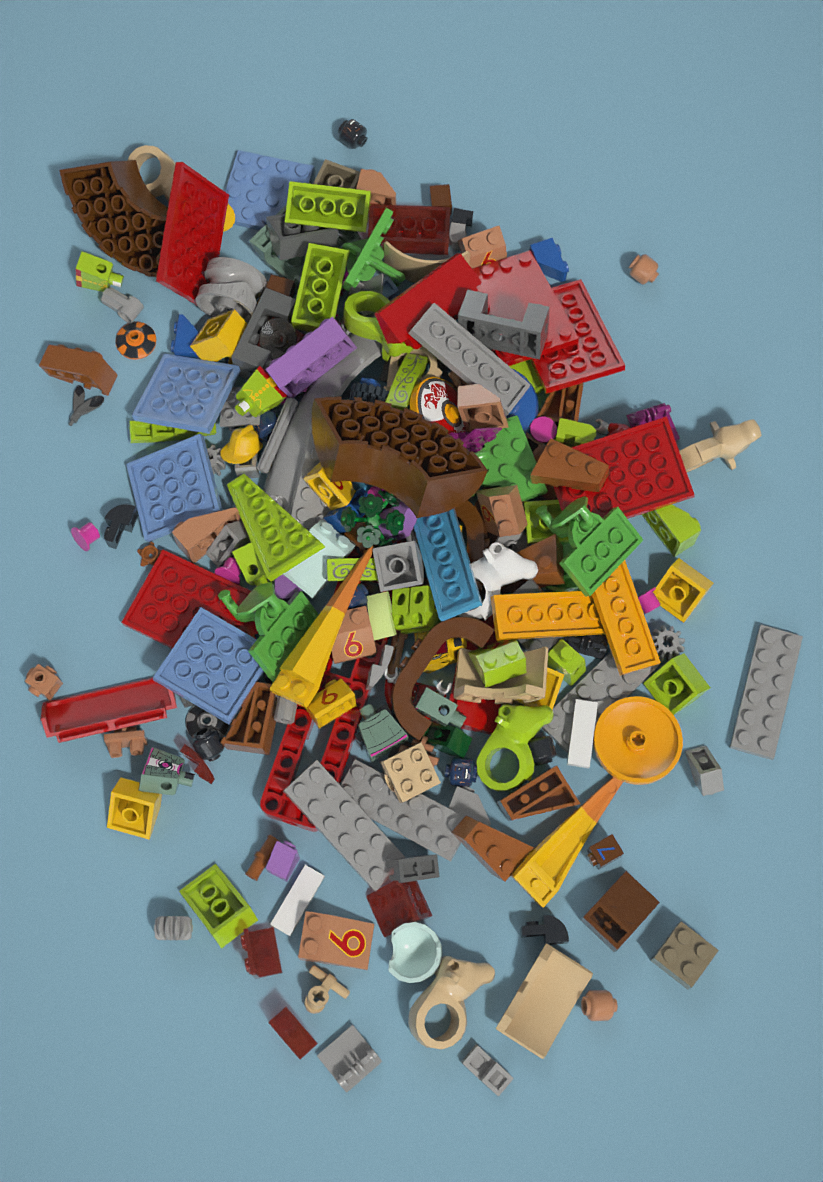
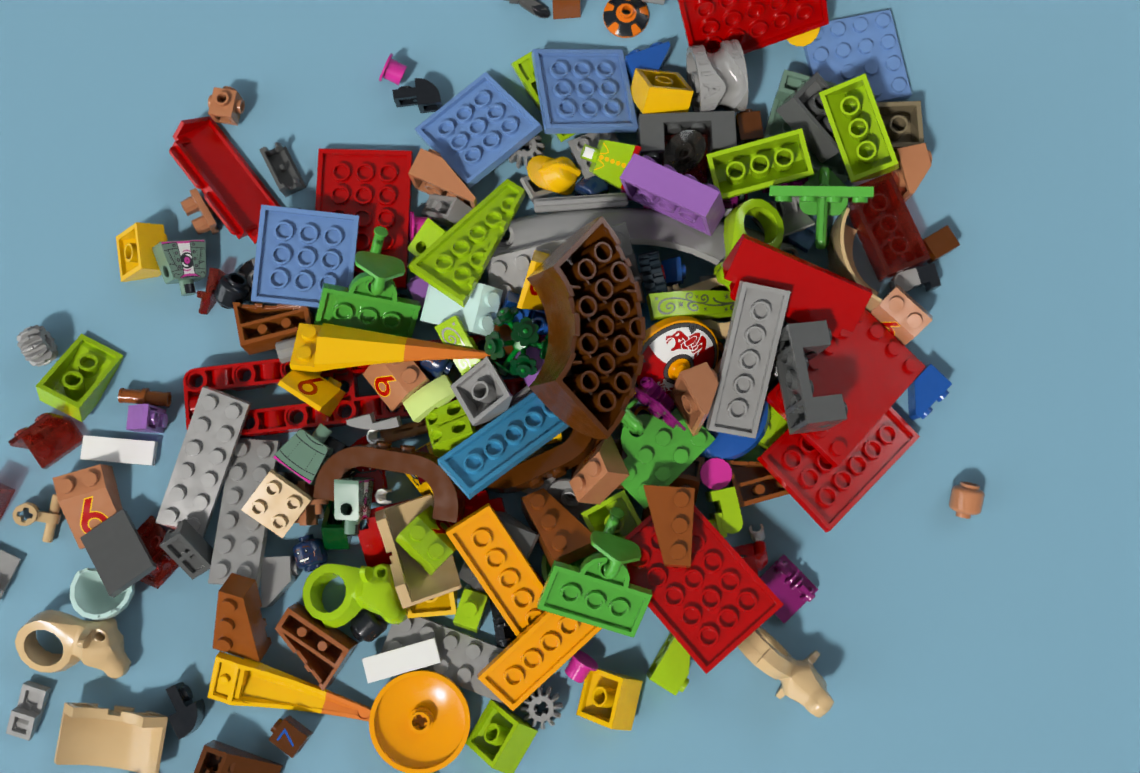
camera: 65 degrees right, 10 degrees up
(123, 661) = (283, 169): none -> dark grey hinge
(146, 551) = (404, 136): dark orange plate -> none
(352, 134) = (970, 116): black head -> none
(389, 925) = (118, 553): none -> dark grey tile
(496, 569) = (527, 496): white animal -> none

